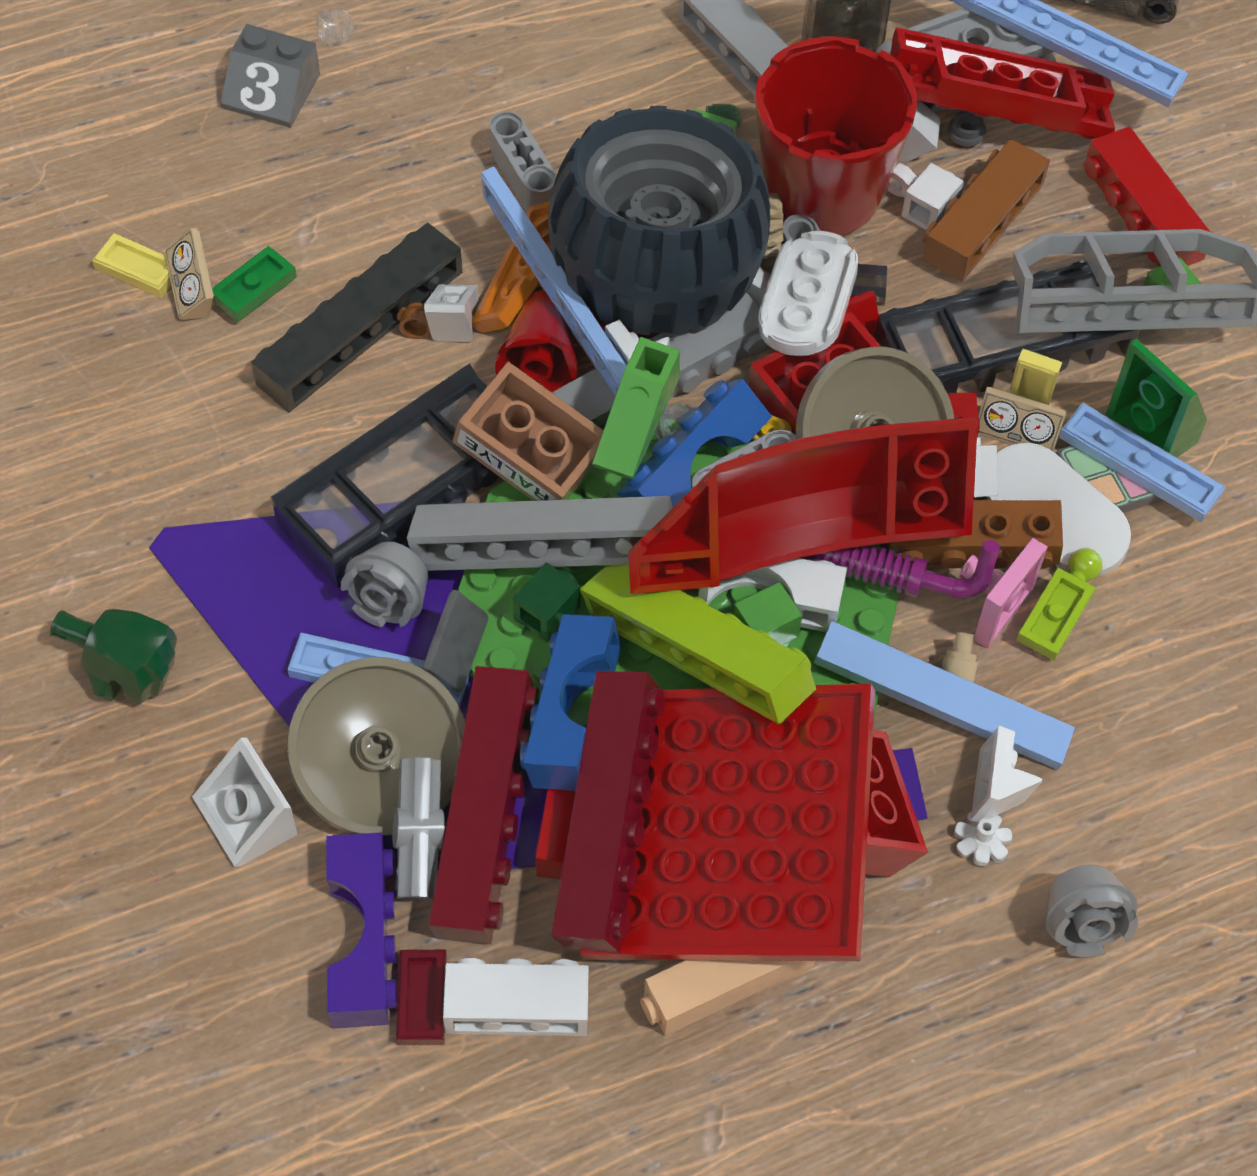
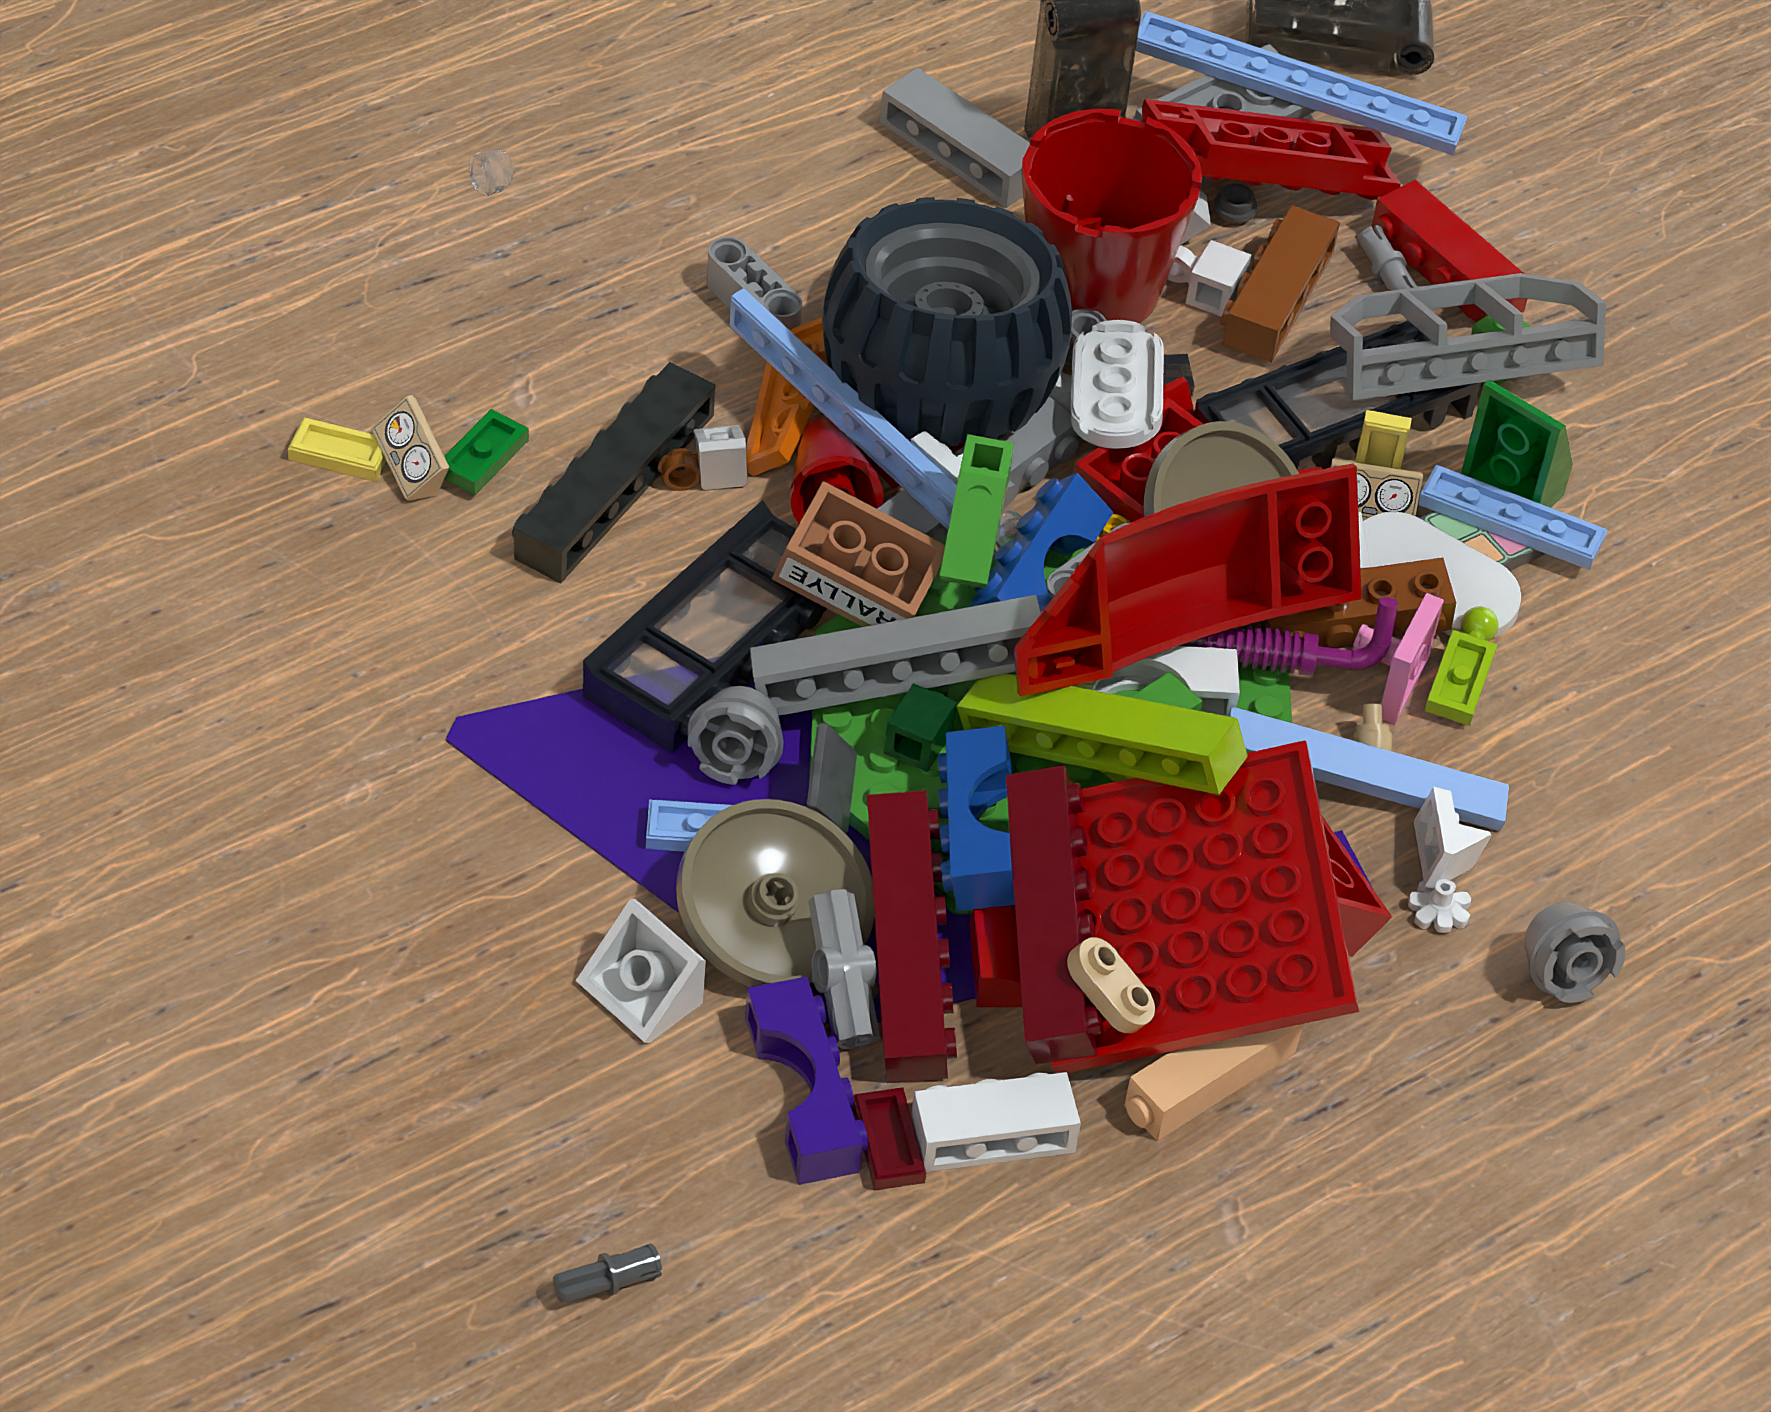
camera: 15 degrees left, 10 degrees down
(121, 652) = (458, 834): dark green piece -> none
(132, 1096) = (608, 1273): none -> dark grey axle
(269, 75) = (434, 230): dark grey slope -> none
(639, 897) = (1111, 985): none -> tan plate
(1088, 200) = (1386, 263): none -> light grey pin

